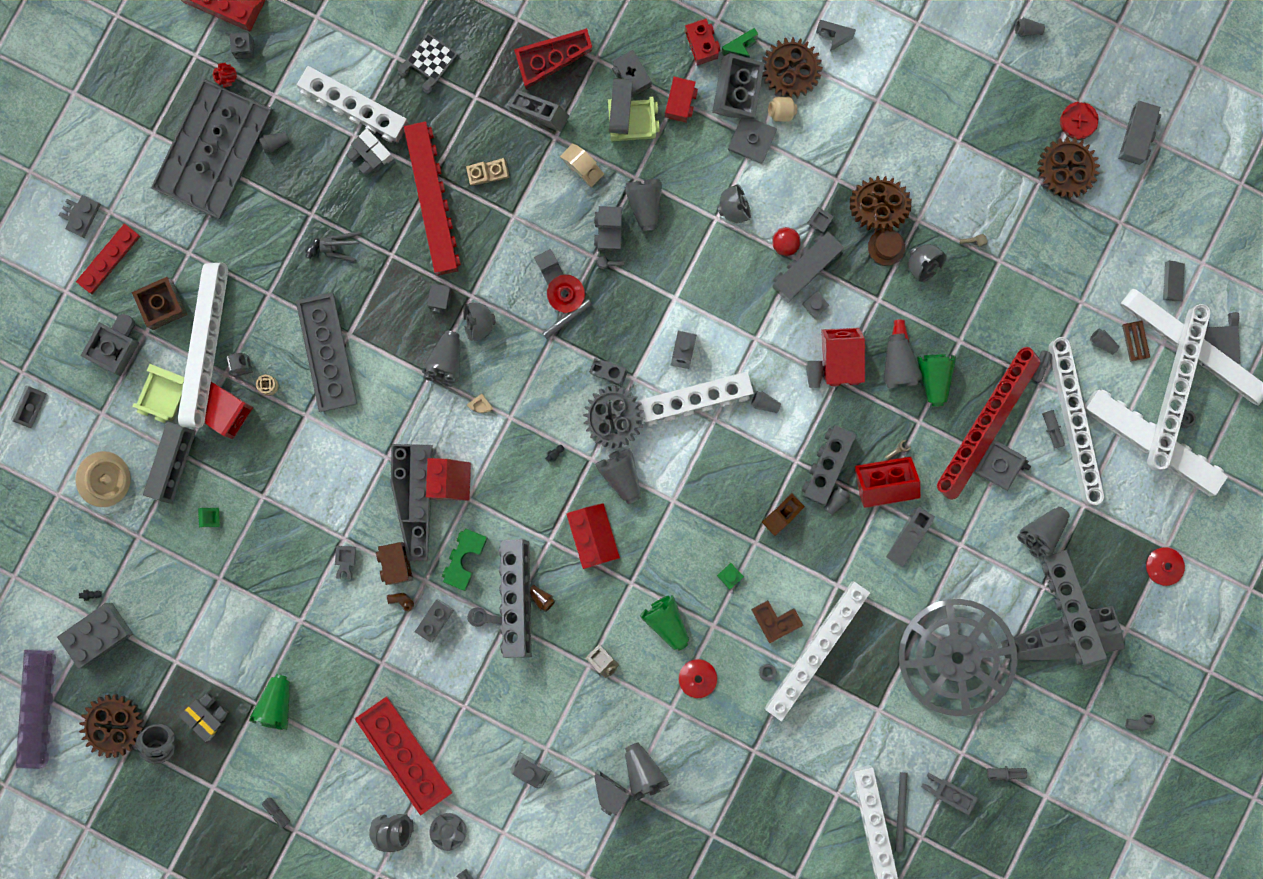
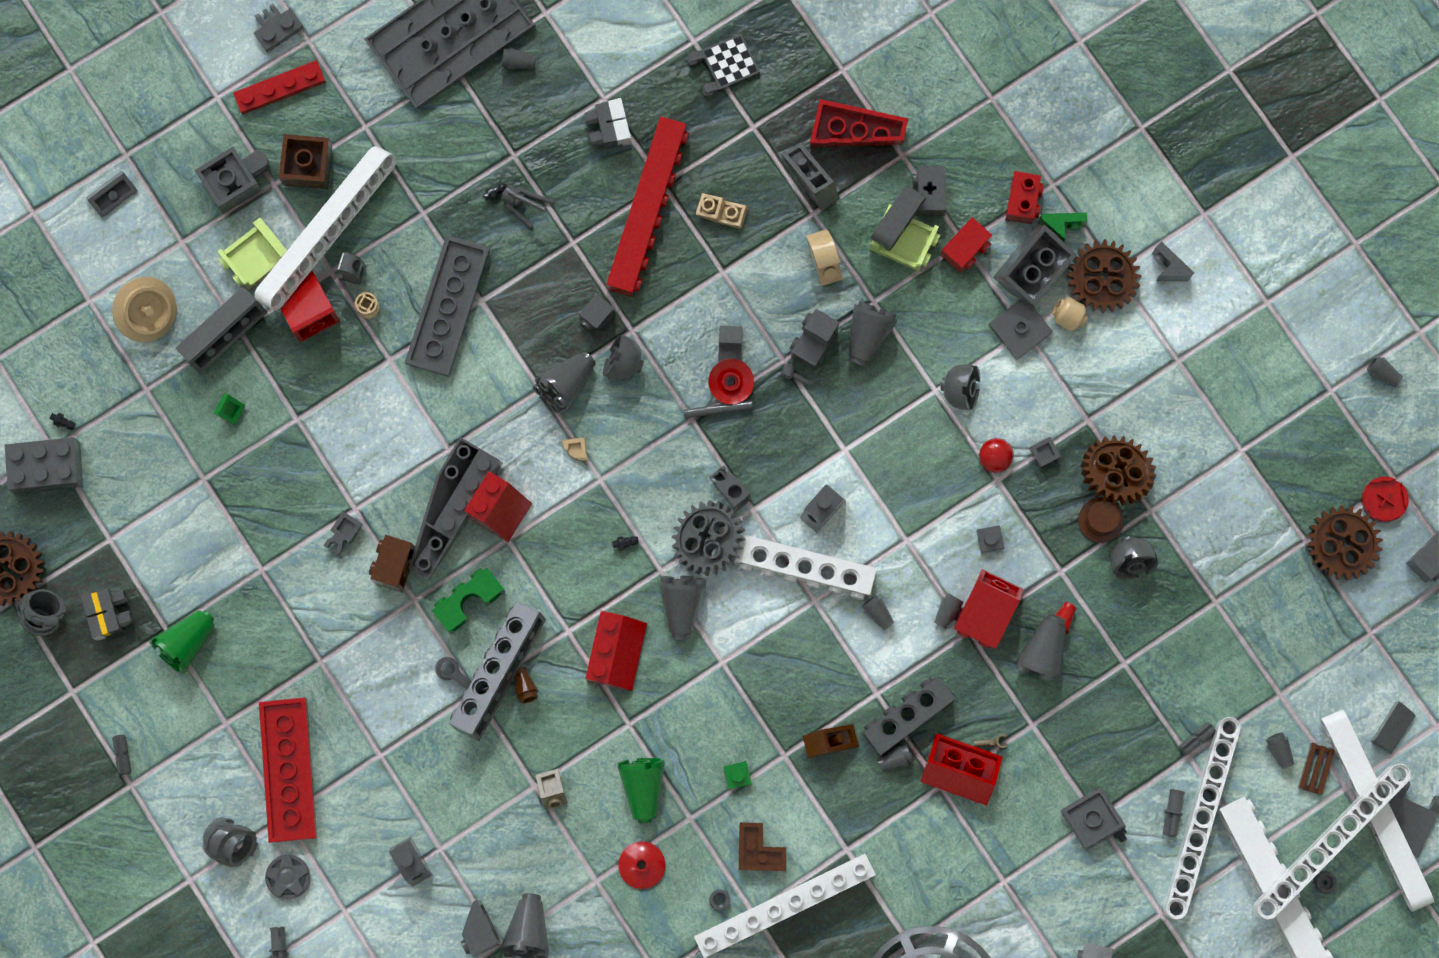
camera: 30 degrees right, 5 degrees down
(312, 78) = (594, 16): white brick -> none
(401, 598) = (379, 605): reddish brown arm -> none
(434, 620) = (400, 646): dark grey brick -> none
(807, 267) = (1003, 494): dark grey brick -> none
(910, 536) = (952, 840): dark grey slope -> none
(937, 376) = (1076, 686): green cone -> none
(980, 239) = (1206, 566): dark tan hand -> none
(991, 414) = (1105, 767): red beam -> none
(1044, 533) = (1101, 917): dark grey cone -> none

